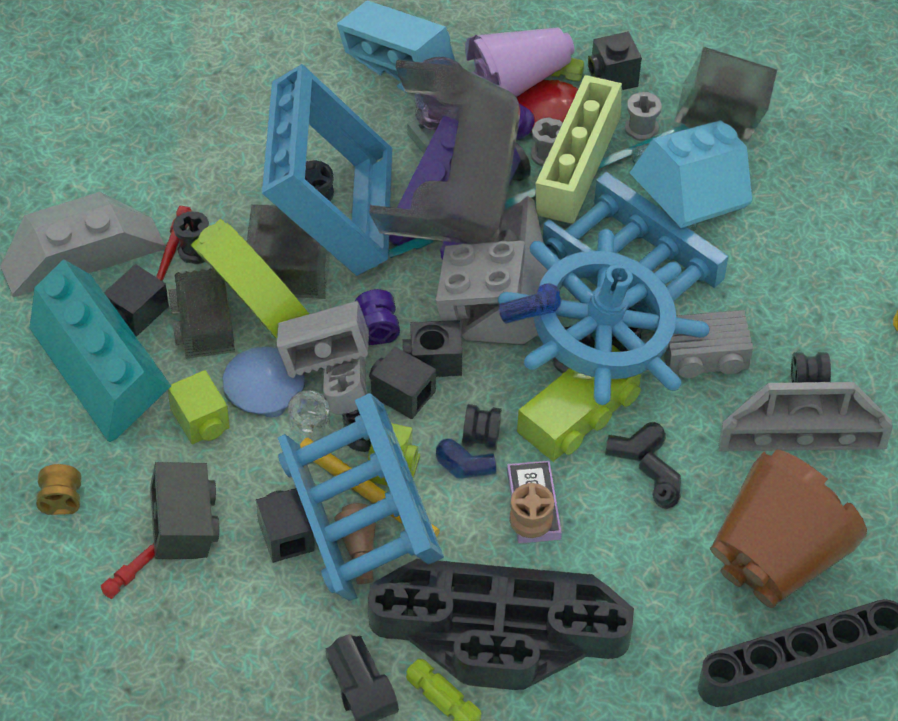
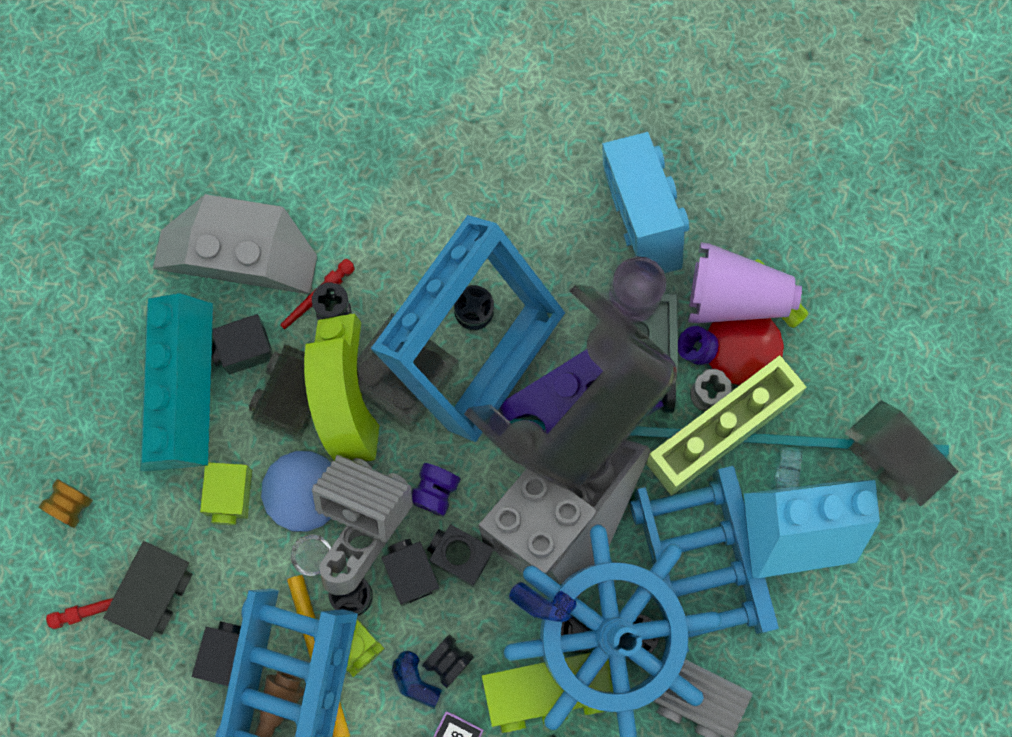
camera: 30 degrees right, 25 degrees up
(616, 60) = (832, 337): black brick -> none
(643, 111) = (830, 412): light grey bush -> none

